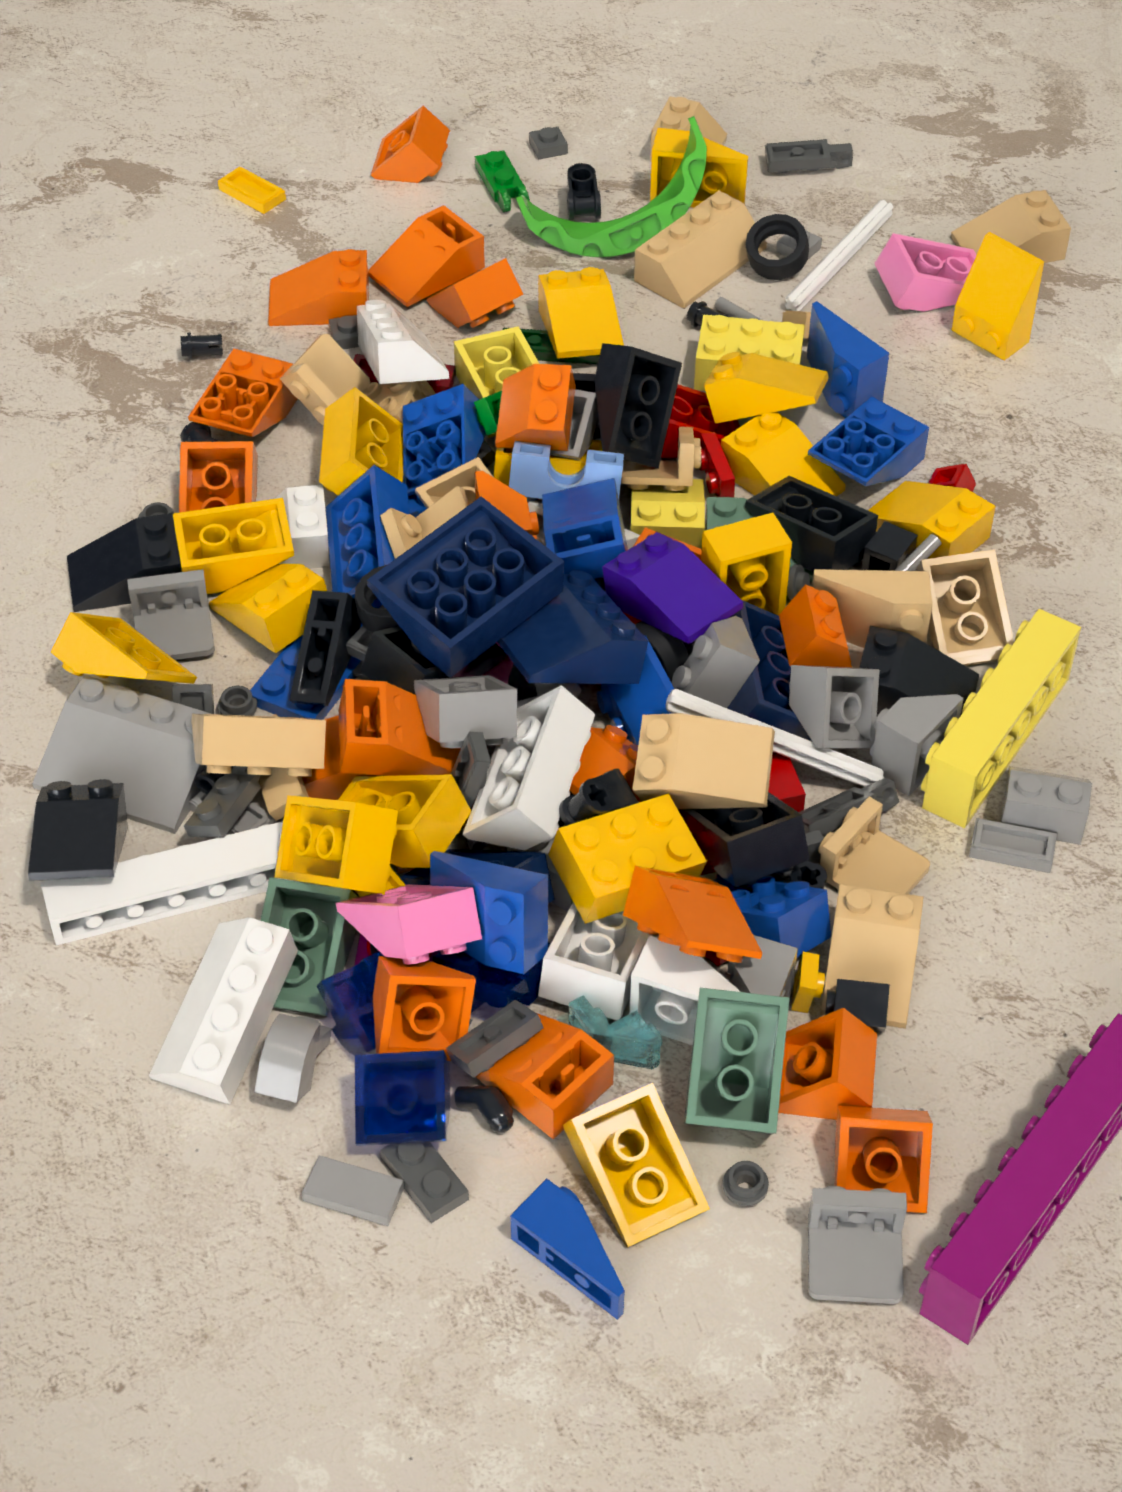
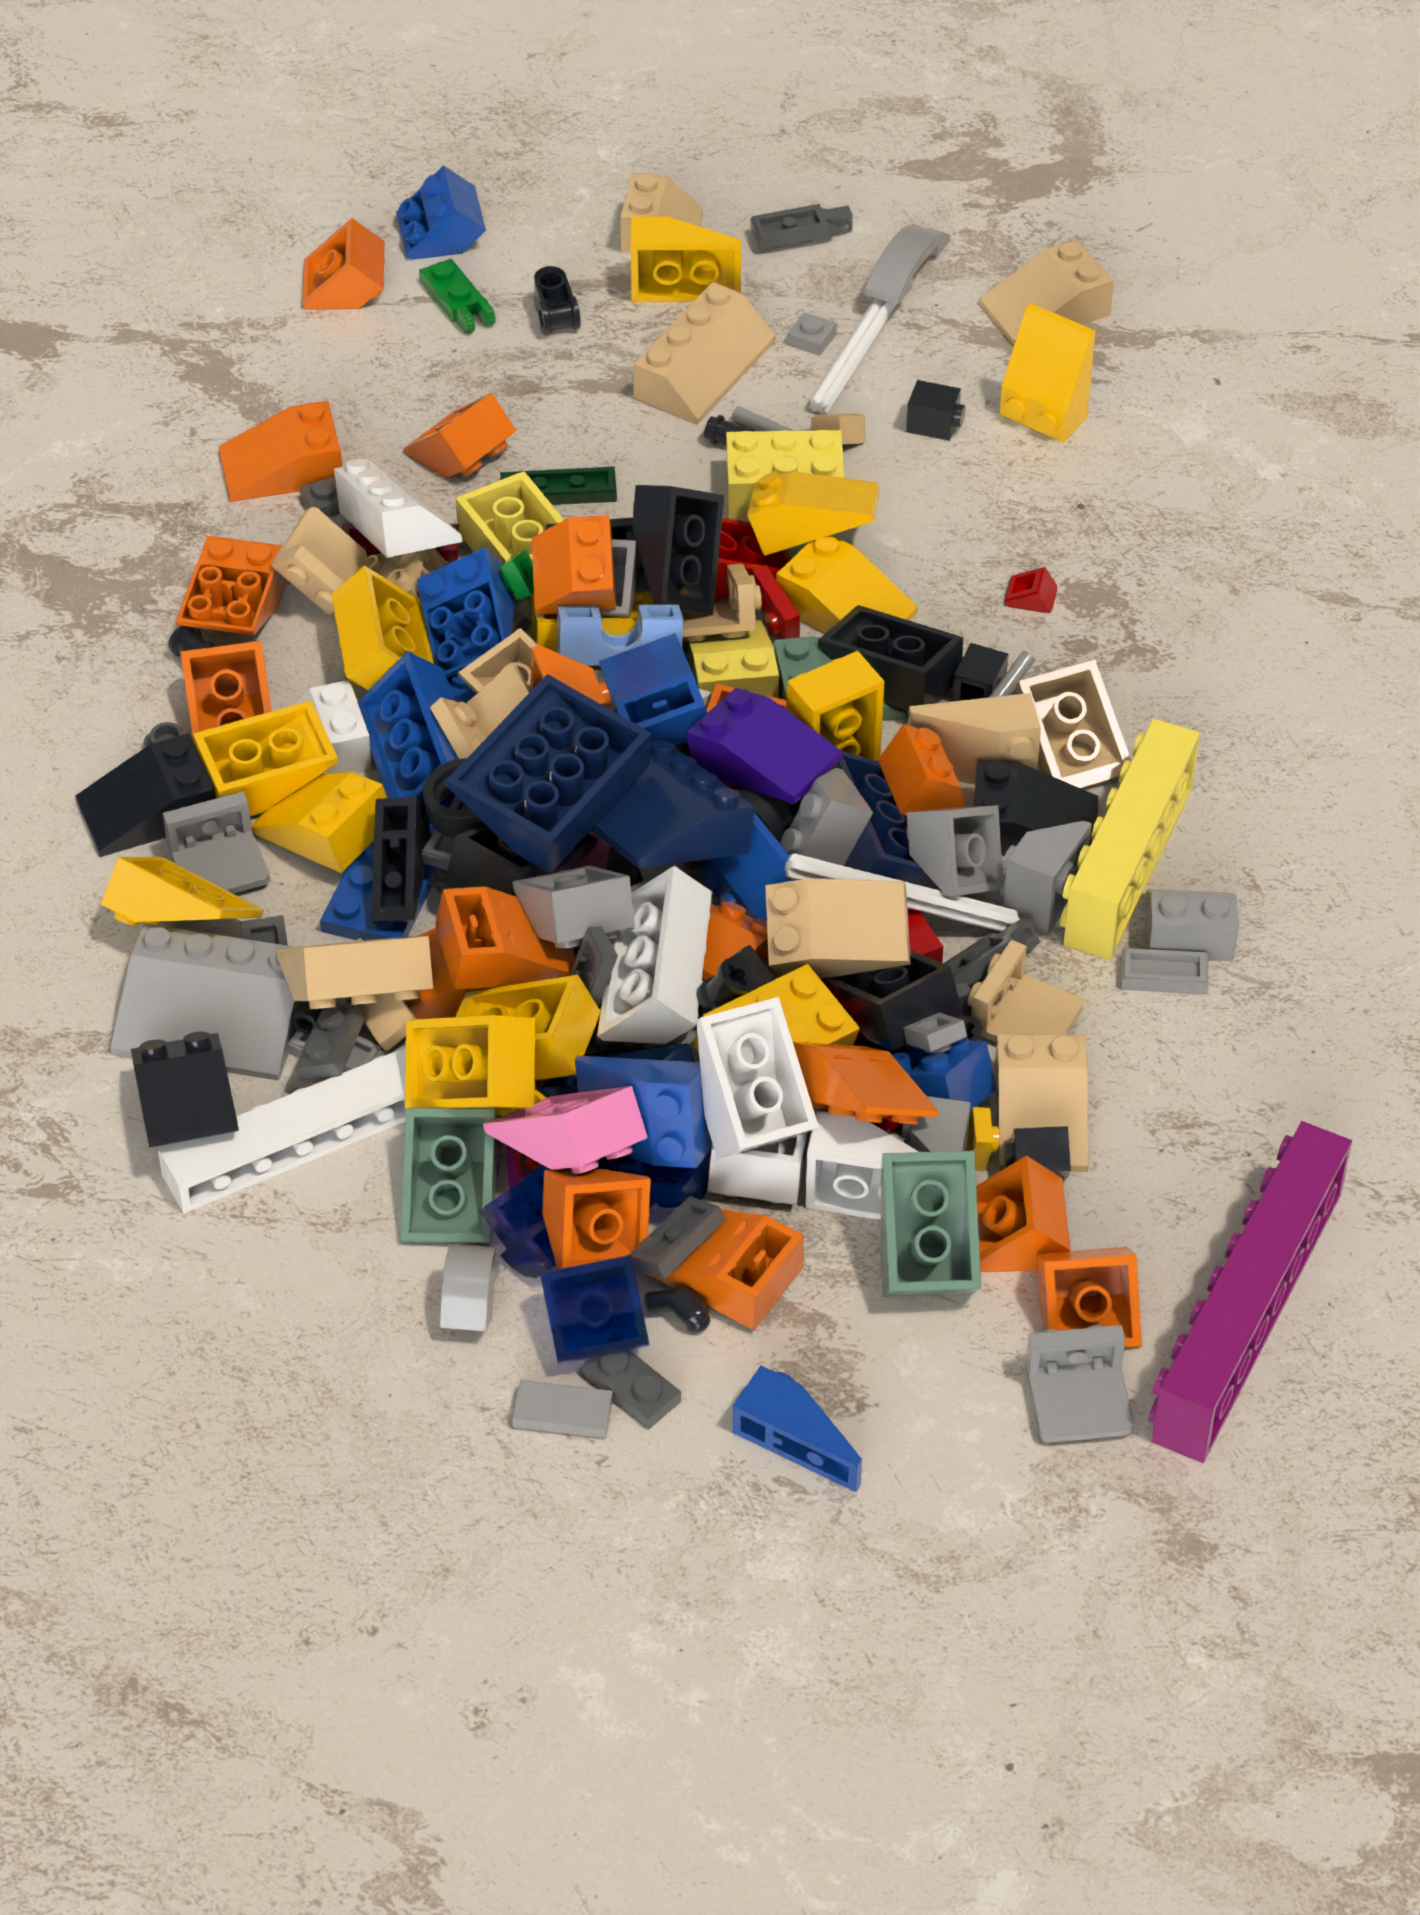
camera: 10 degrees left, 0 degrees up
(201, 345) = (161, 534): black pin -> none
(226, 1008) = (387, 1248): white slope -> none
(237, 701) = (311, 930): dark grey plate -> none
(251, 190) = (168, 340): yellow tile -> none
(429, 256) = (398, 399): orange slope -> none
(503, 115) = (440, 217): none -> blue slope
(548, 142) = (500, 243): dark grey plate -> none
(578, 311) = (585, 446): yellow slope -> none
(588, 896) = (751, 1079): none -> white slope
(628, 1038) = (813, 1216): clear light blue slope -> none
(631, 231) = (624, 337): bright green windscreen -> none
(636, 1165) = (844, 1340): yellow slope -> none
(745, 1173) = (957, 1333): dark grey plate -> none
(770, 226) = (790, 315): black tyre -> none
(777, 876) = (935, 1033): none -> light grey plate
(796, 580) = (890, 723): dark grey plate -> none
(851, 359) = (902, 465): blue slope -> none
(873, 444) = (941, 557): blue slope -> none
(890, 187) = (901, 259): none -> light grey slope
(893, 319) = (934, 410): none -> black brick
(923, 272) = (961, 349): bright pink slope -> none
(951, 513) = (1029, 623): yellow slope -> none

